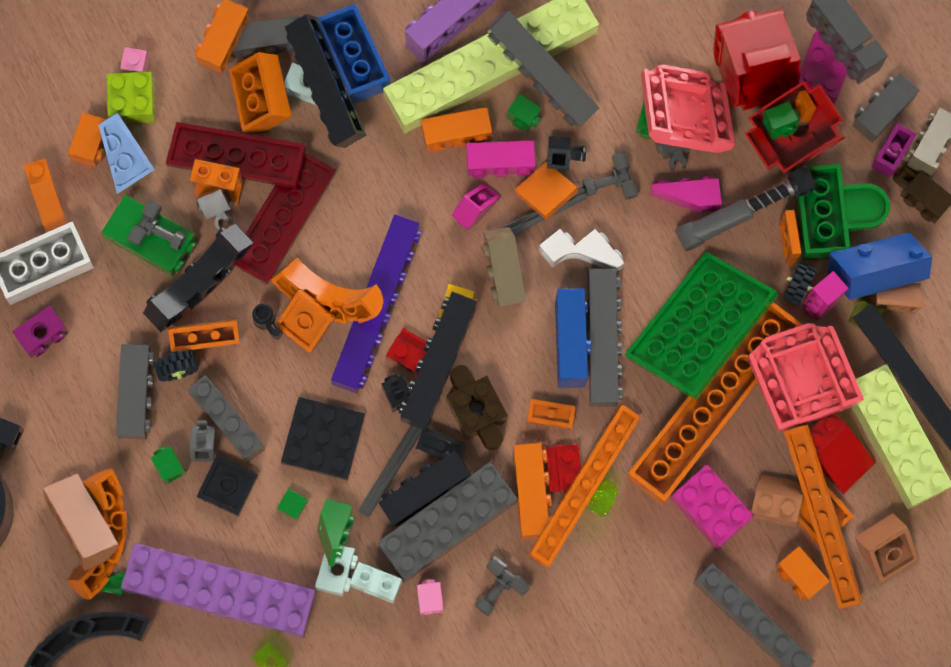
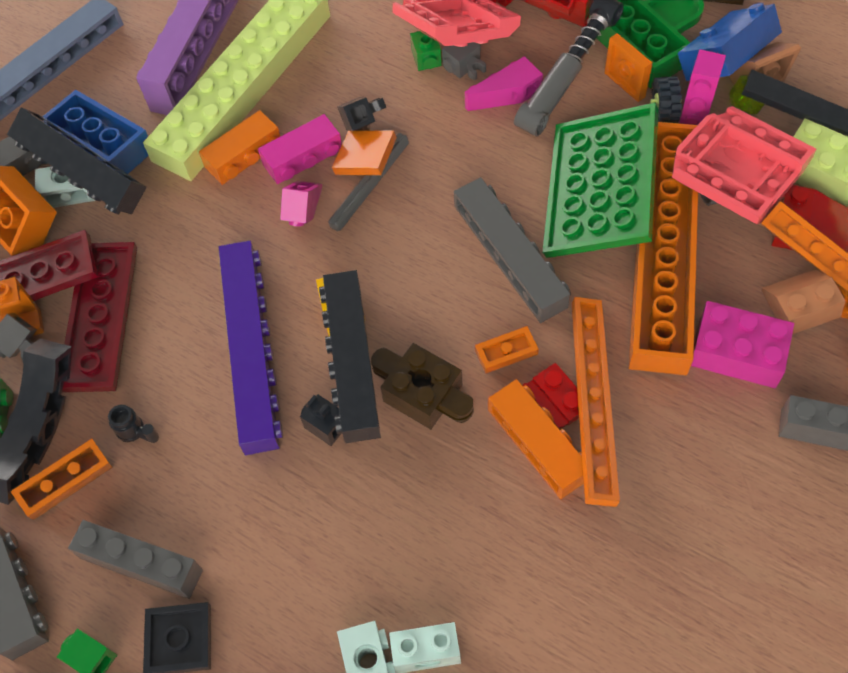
camera: 20 degrees left, 15 degrees down
(176, 365) = (42, 530): black wheel -> none
(202, 442) = (118, 601): dark grey brick -> none
(292, 504) = (269, 614): green tile -> none
(305, 321) = (176, 401): orange tile -> none
(322, 438) = (265, 519): black plate -> none
(333, 527) = (337, 610): green slope -> none
(341, 302) = (187, 368): orange brick -> none
(390, 470) = (365, 508): dark grey axle -> none
(407, 350) = (310, 373): red plate -> none
(424, 488) = (417, 501): black brick -> none
(430, 597) = (500, 627): bright pink brick -> none
(438, 444) = (407, 448): black plate -> none
(447, 522) = (465, 529): dark grey brick -> none
(504, 266) = (365, 233): dark tan wedge -> none
(505, 580) = (574, 554): dark grey bar -> none
(524, 113) = (300, 102): green brick -> none
(542, 69) = (293, 47): dark grey brick -> none
(571, 338) = (479, 261): blue brick -> none
(591, 249) = (442, 180): white arch -> none
(603, 499) = (624, 401): clear neon green brick -> none
(619, 177) = (428, 109): dark grey bar -> none

